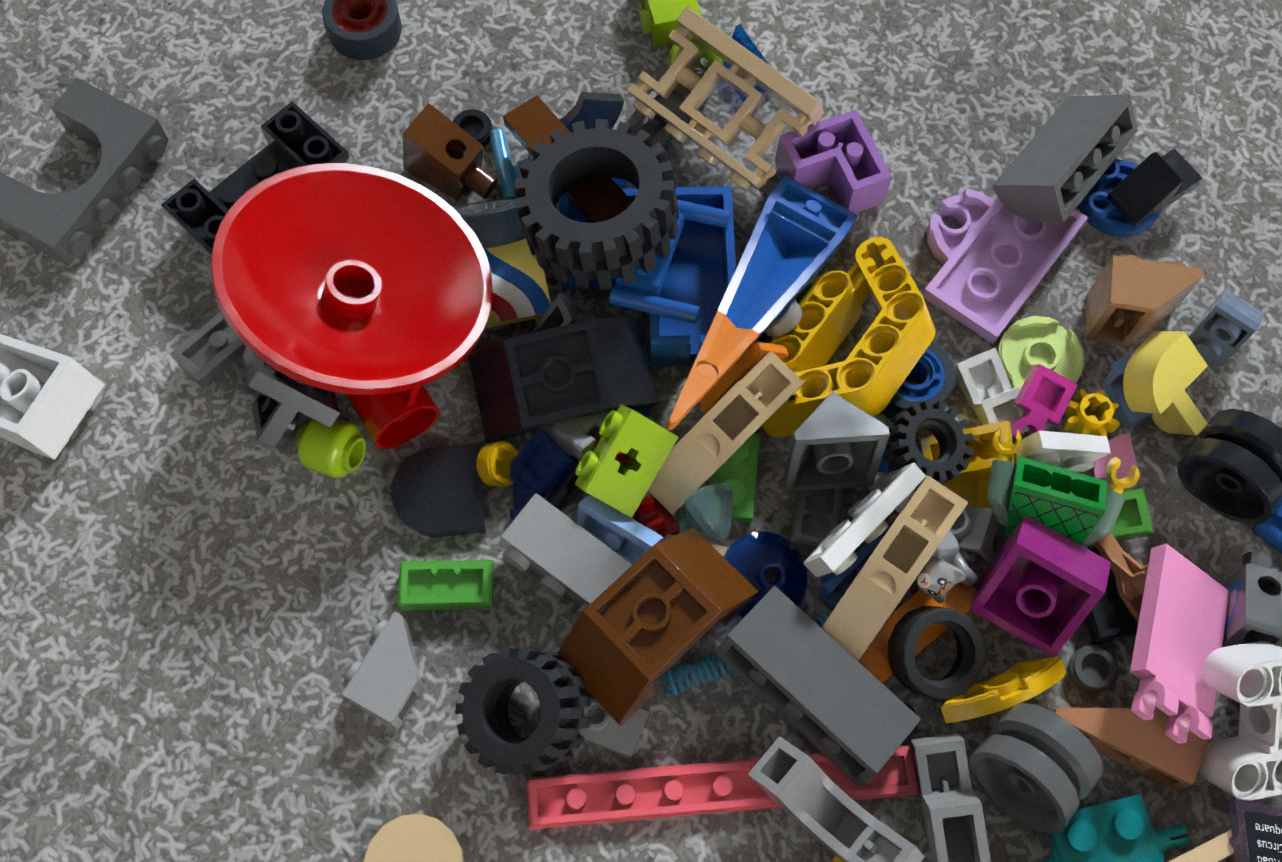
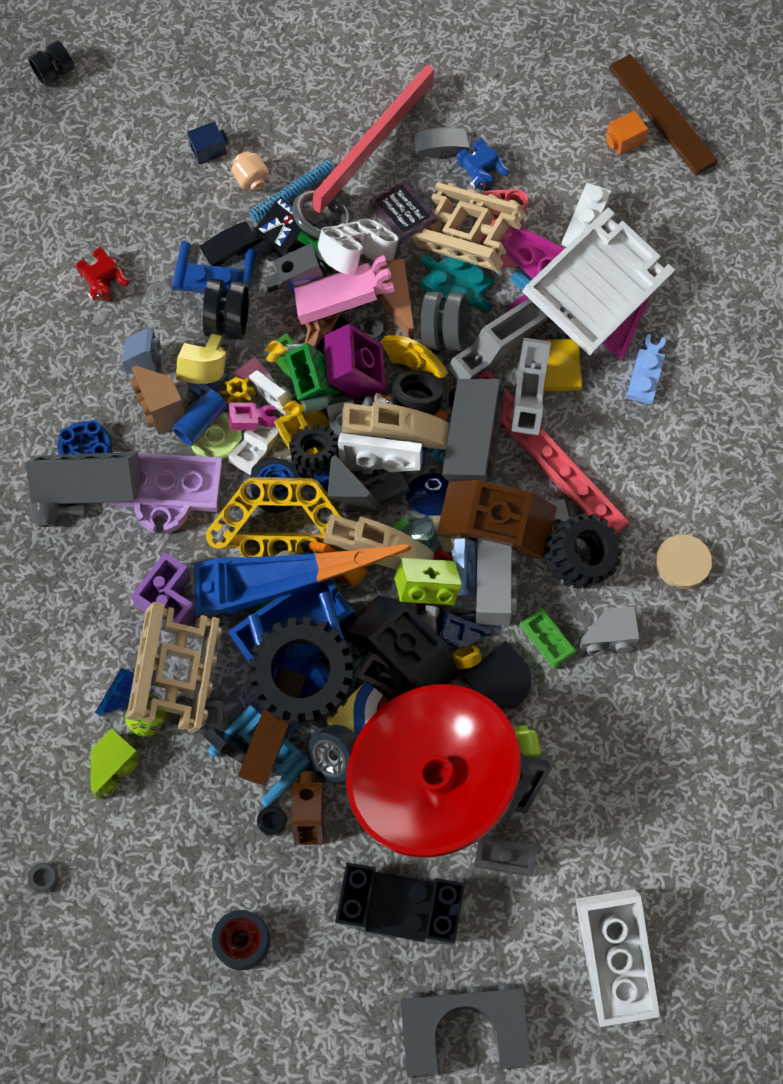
camera: 120 degrees left, 0 degrees up
(1040, 104) = (47, 513): none -> dark grey bar
(1076, 337) = (199, 417): none -> blue pin
(1153, 186) = (75, 425): black slope -> none

